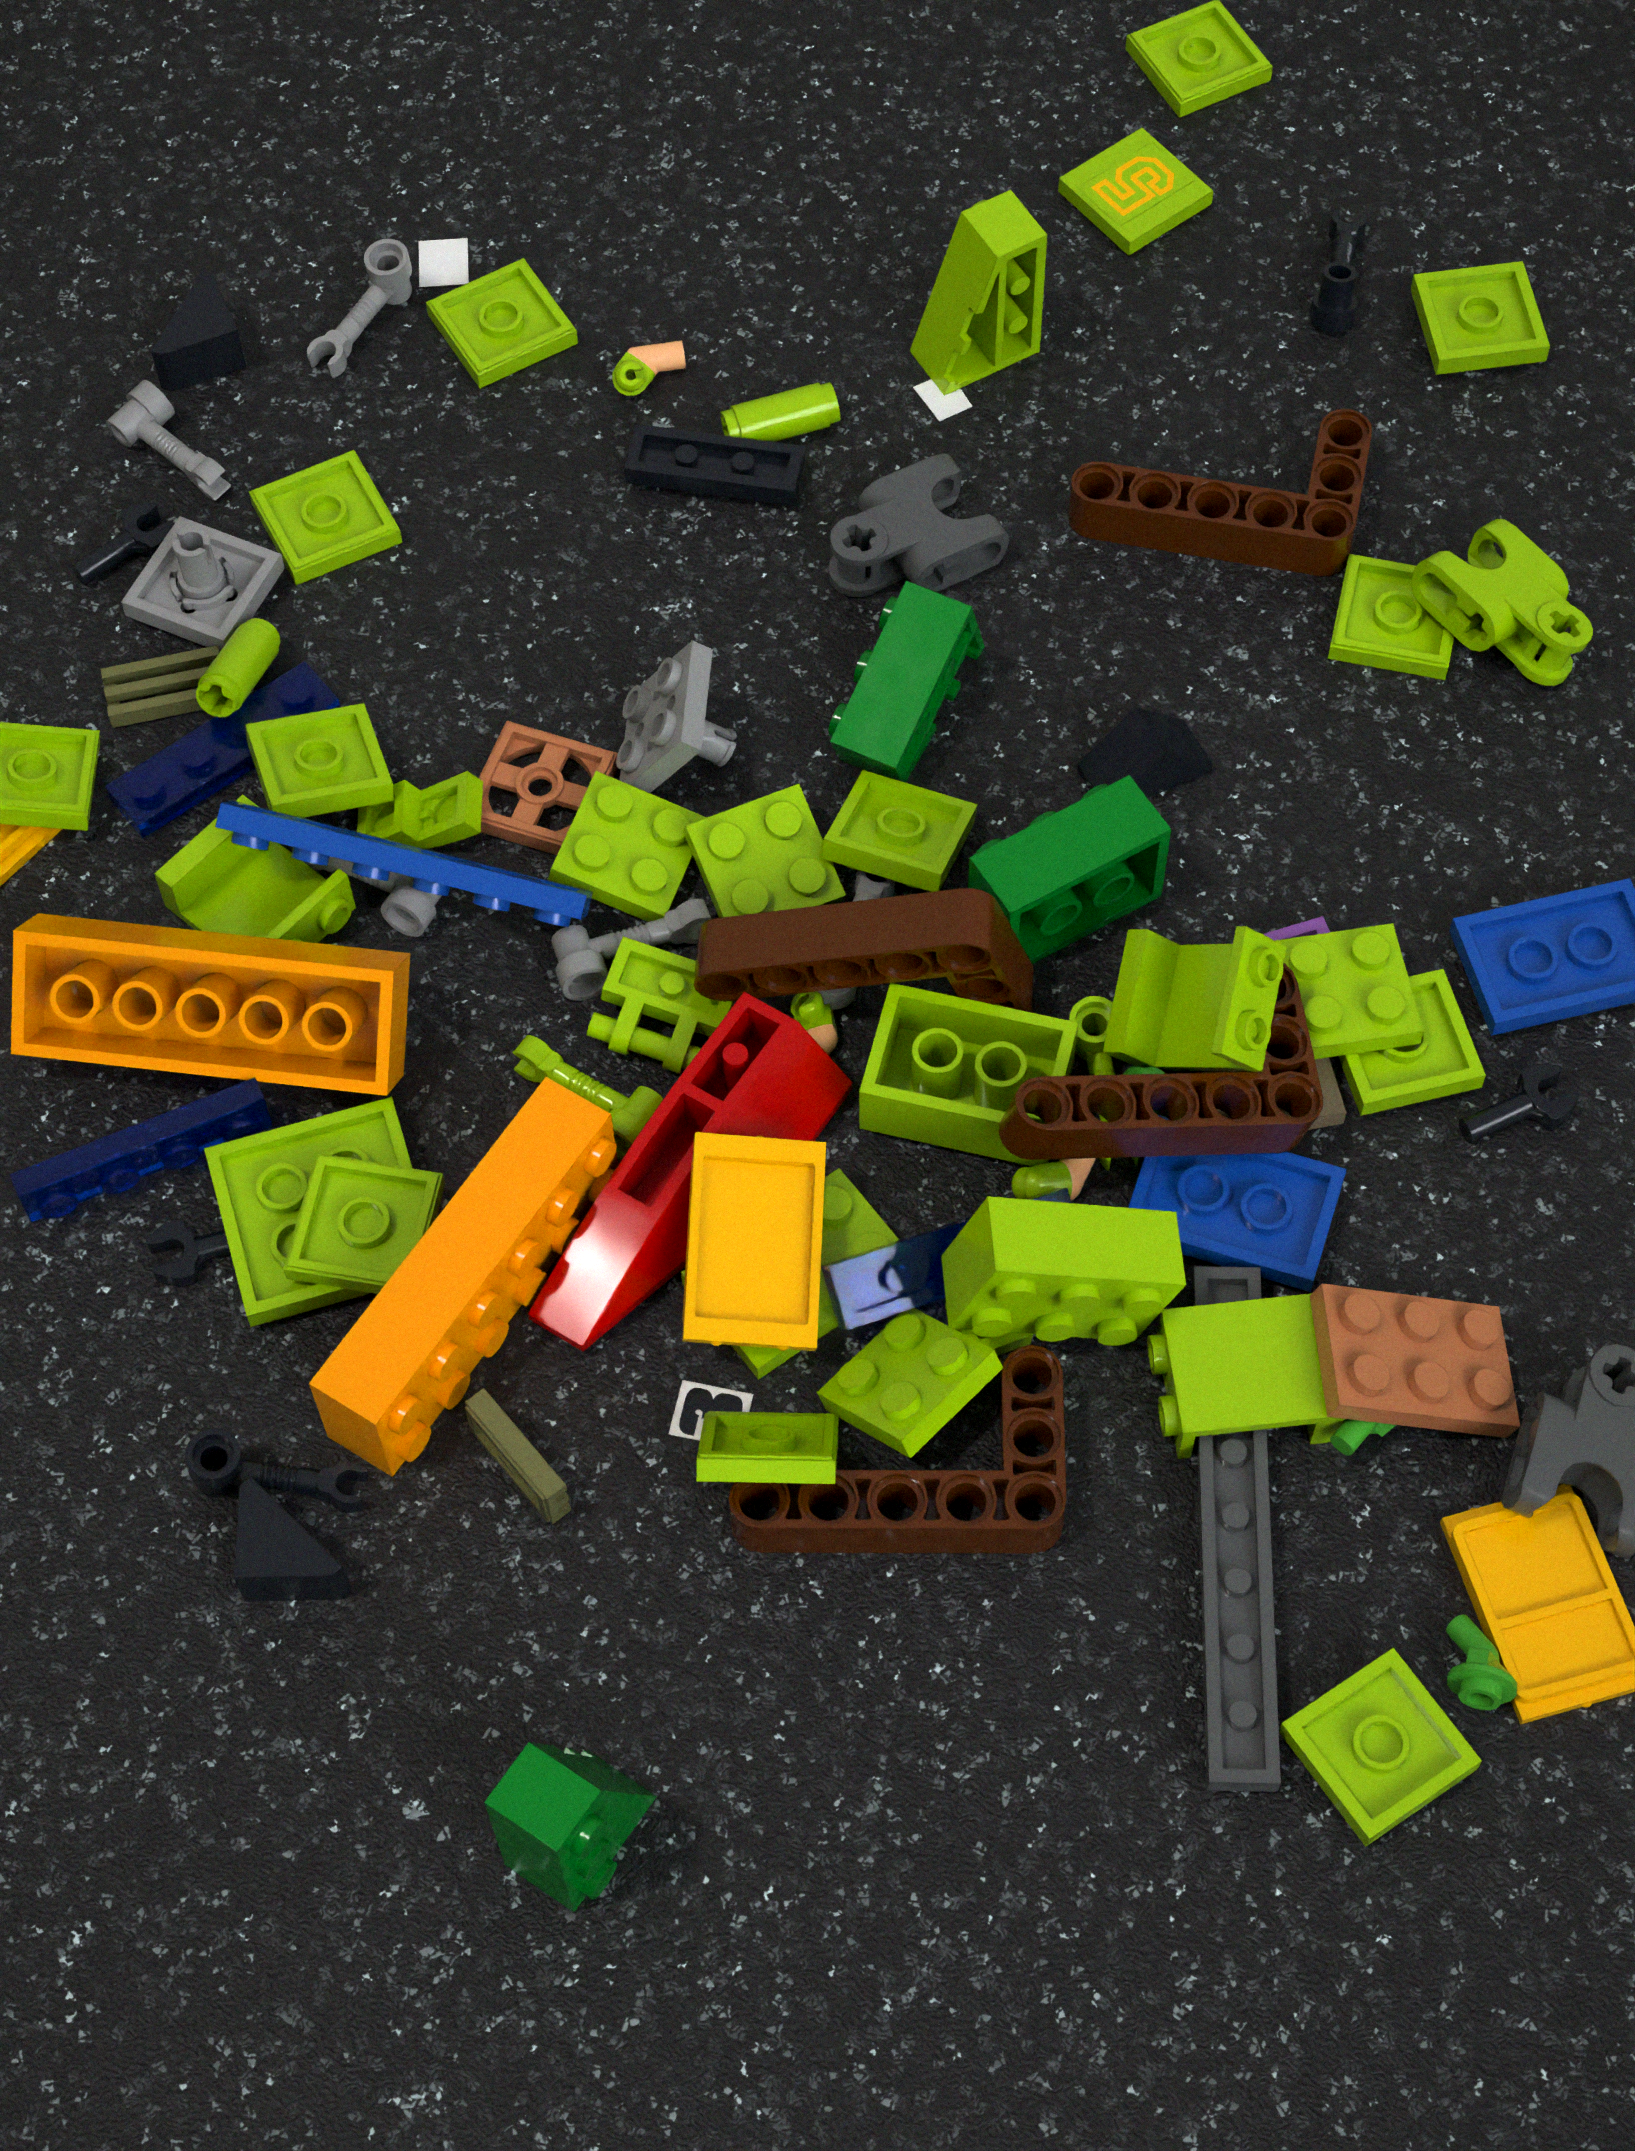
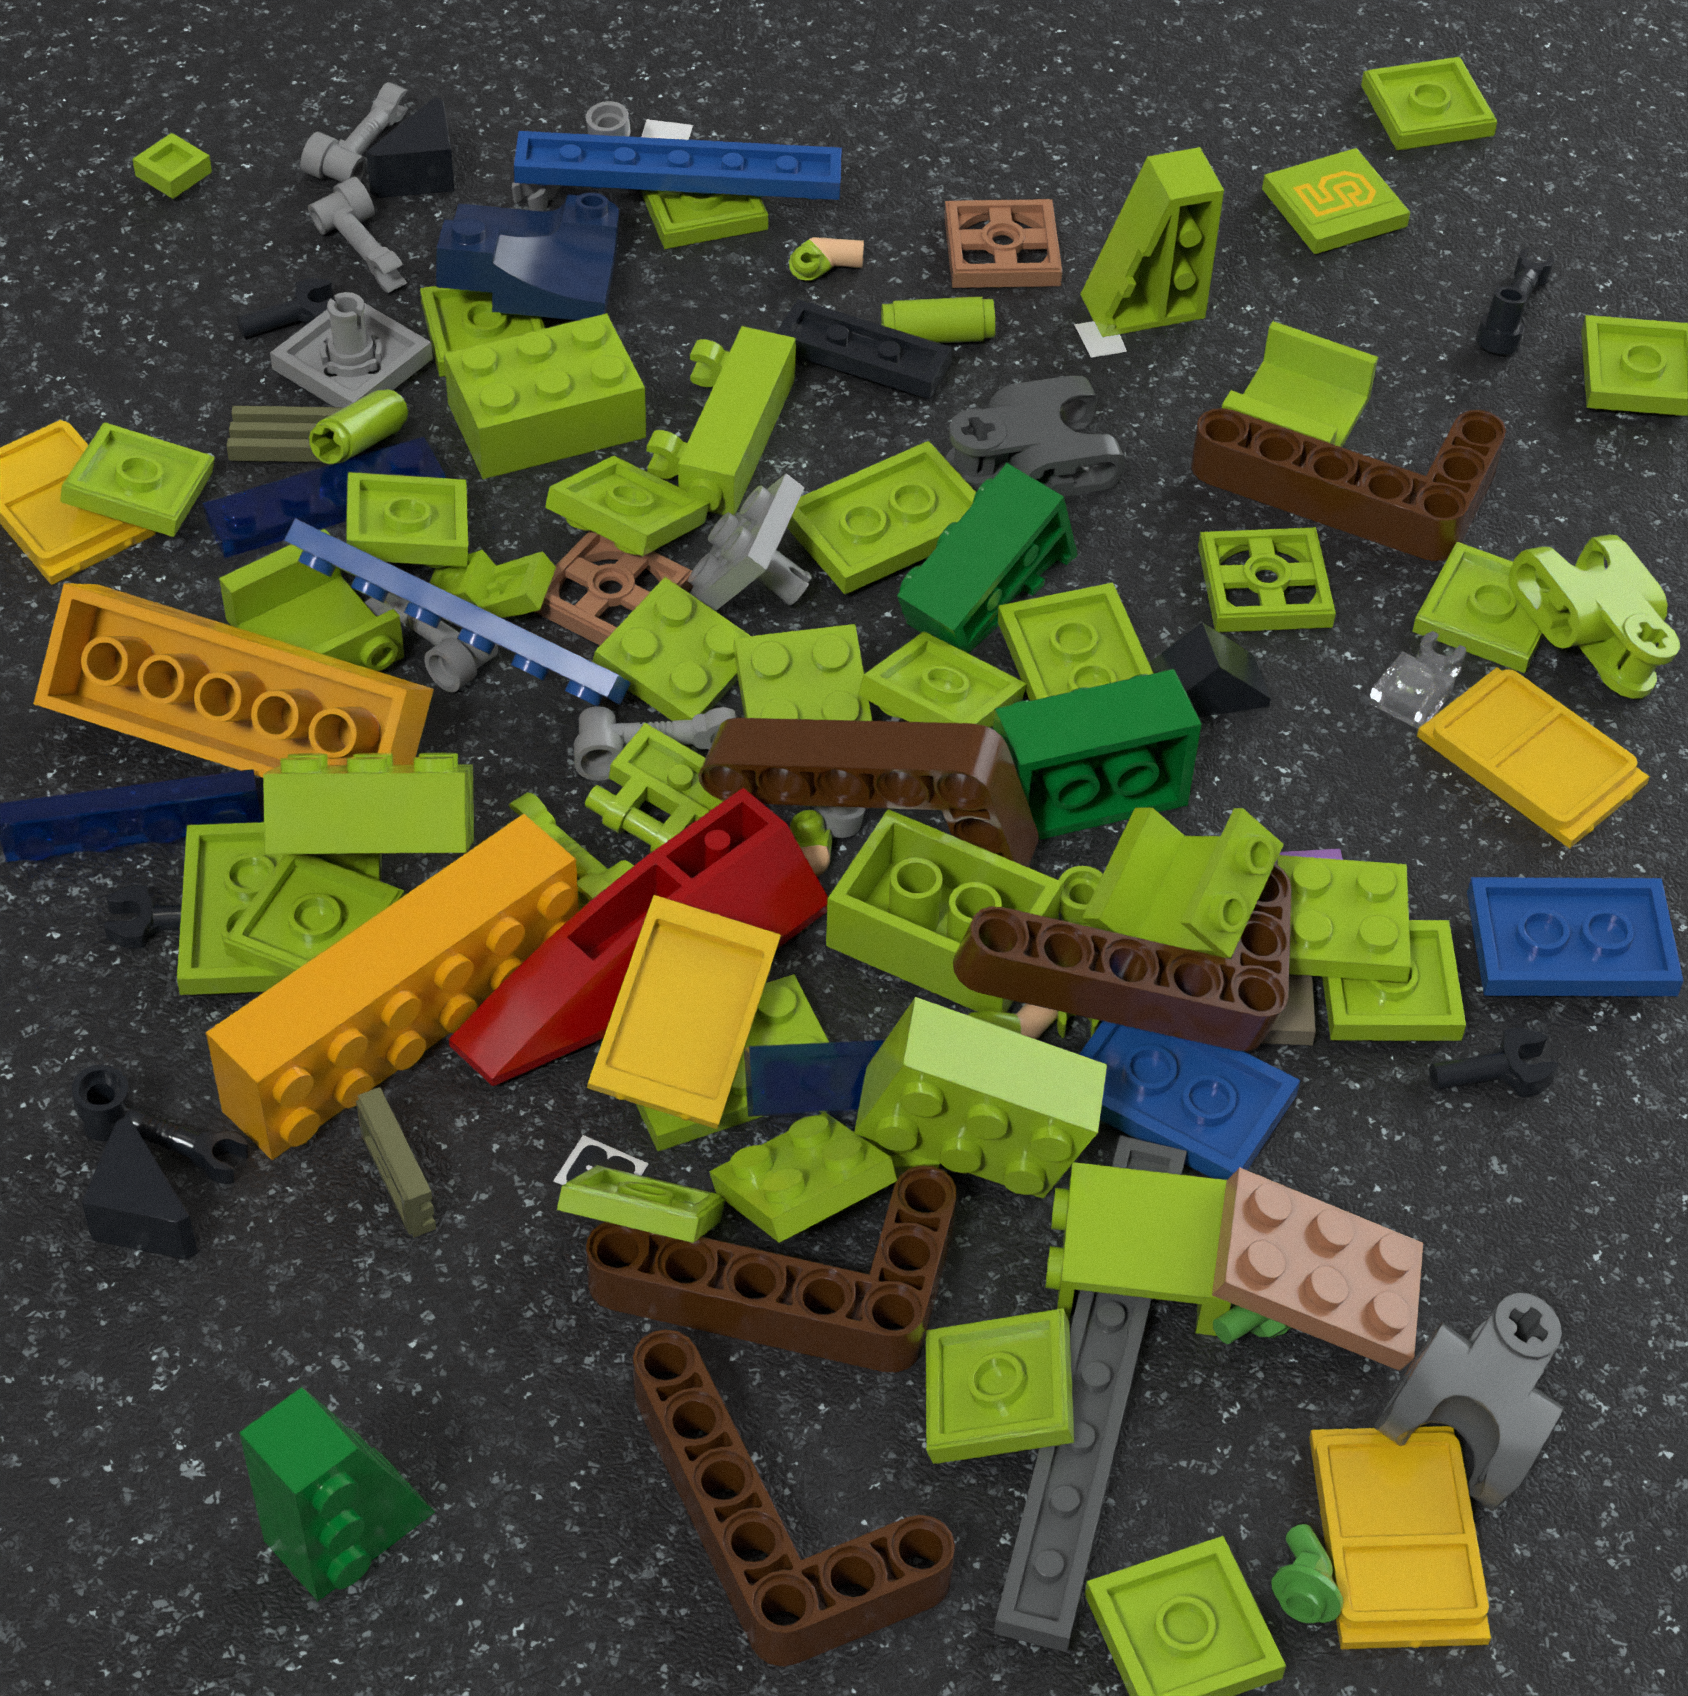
camera: 10 degrees right, 10 degrees down
(121, 357) = (342, 159): none -> light grey brick
(356, 433) = (533, 259): none -> dark blue slope
(390, 1100) = (368, 805): none -> lime brick
(414, 590) = (545, 395): none -> lime brick
(473, 297) = (678, 165): none -> blue plate
(533, 697) = (626, 506): none -> lime plate
(612, 575) = (735, 421): none -> lime brick
(791, 649) = (881, 516): none -> lime plate
(831, 342) = (1005, 269): none -> nougat piece
(964, 1739) = (752, 1522): none -> reddish brown beam
(1015, 757) = (1072, 641): none -> lime plate
(1149, 1548) = (998, 1386): none -> lime tile
(1161, 415) = (1308, 385): none -> lime panel
(1192, 670) = (1273, 612): none -> lime piece
(1348, 716) = (1418, 686): none -> clear plate
(1476, 767) = (1535, 754): none -> yellow piece

